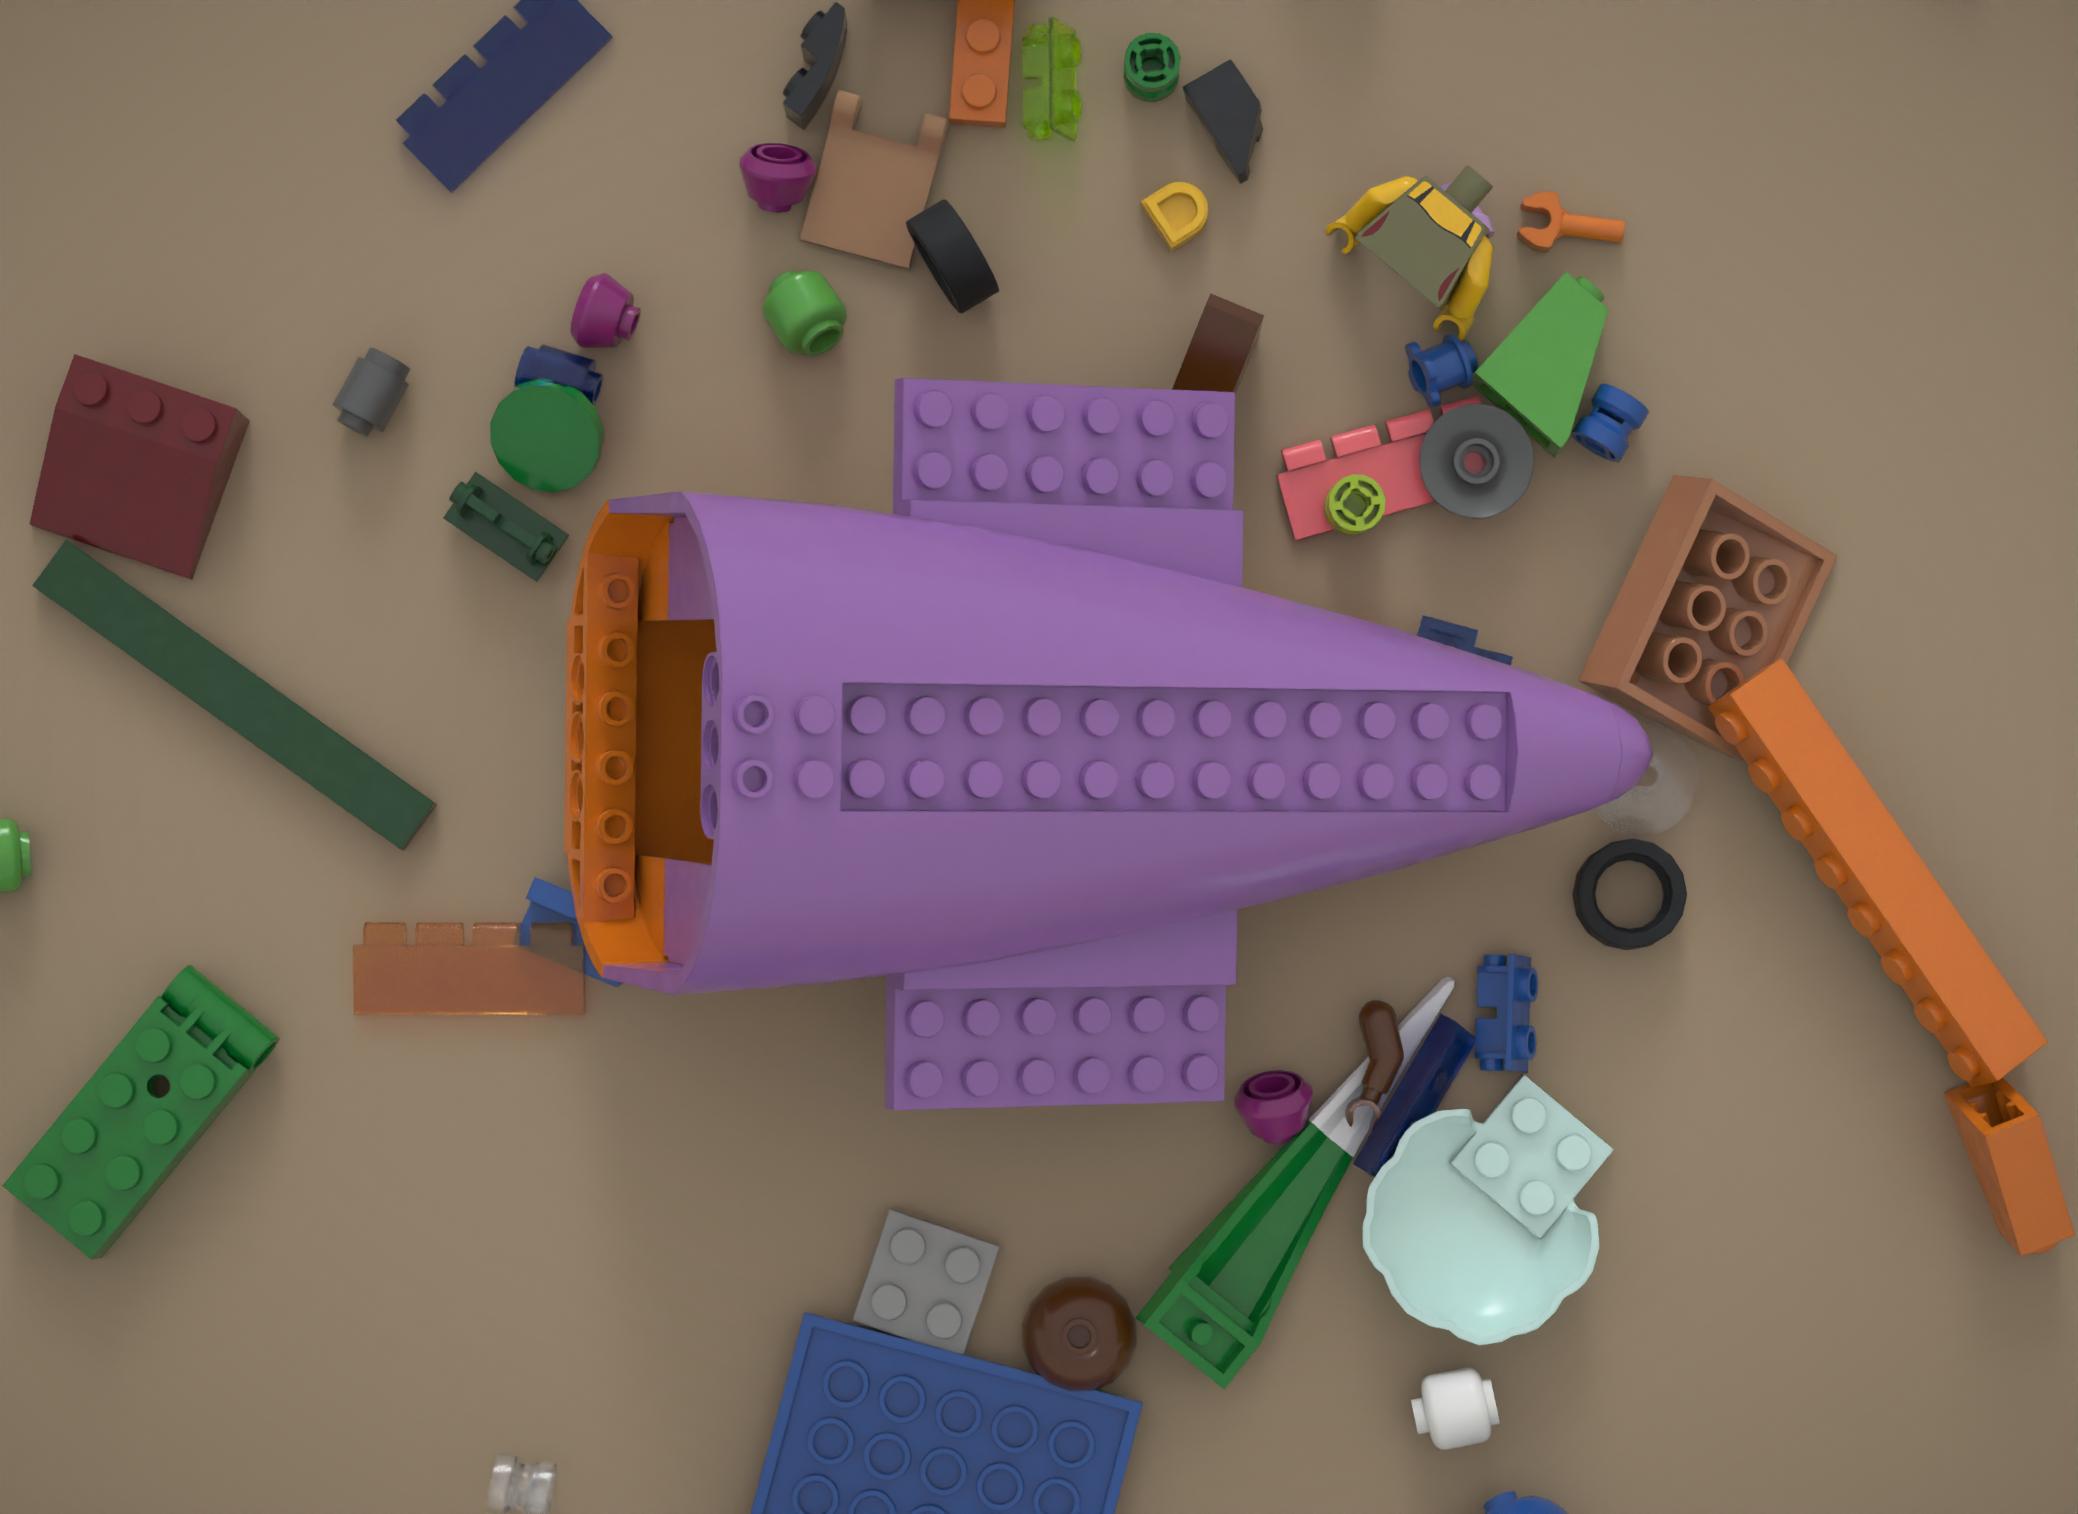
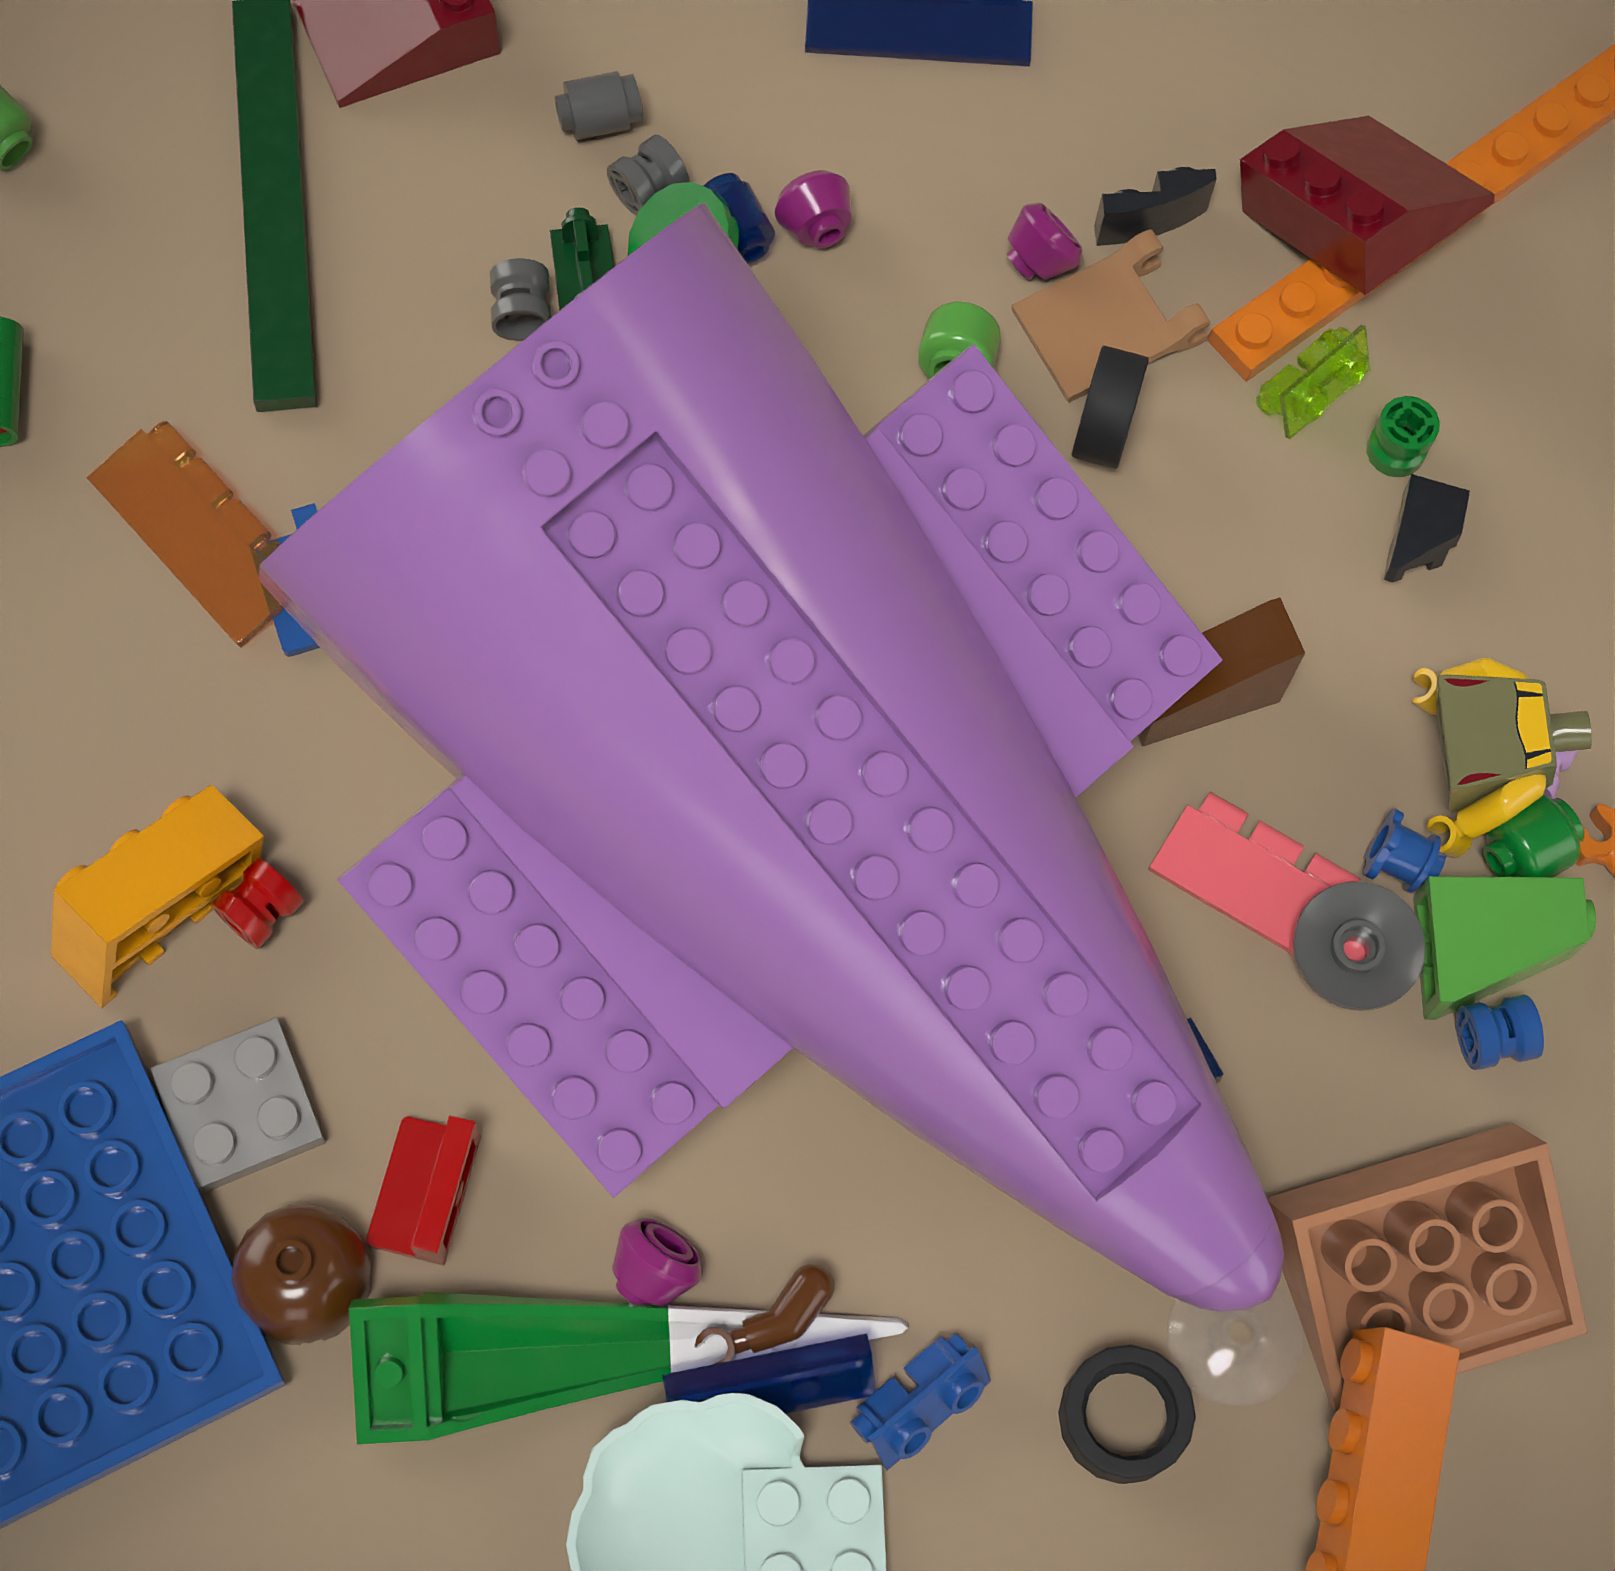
camera: 40 degrees right, 15 degrees down
(463, 409) = (646, 173): none -> dark grey wheel
(486, 590) = (520, 296): none -> dark grey wheel
(727, 1218) = (146, 887): none -> light orange wedge
(797, 1157) = (257, 903): none -> red wheel
(1089, 1210) = (424, 1188): none -> red panel
(1177, 213) = (1312, 555): yellow tile -> none
(1346, 509) = (1216, 890): lime wheel -> none
(1515, 274) = (1536, 841): none -> green head

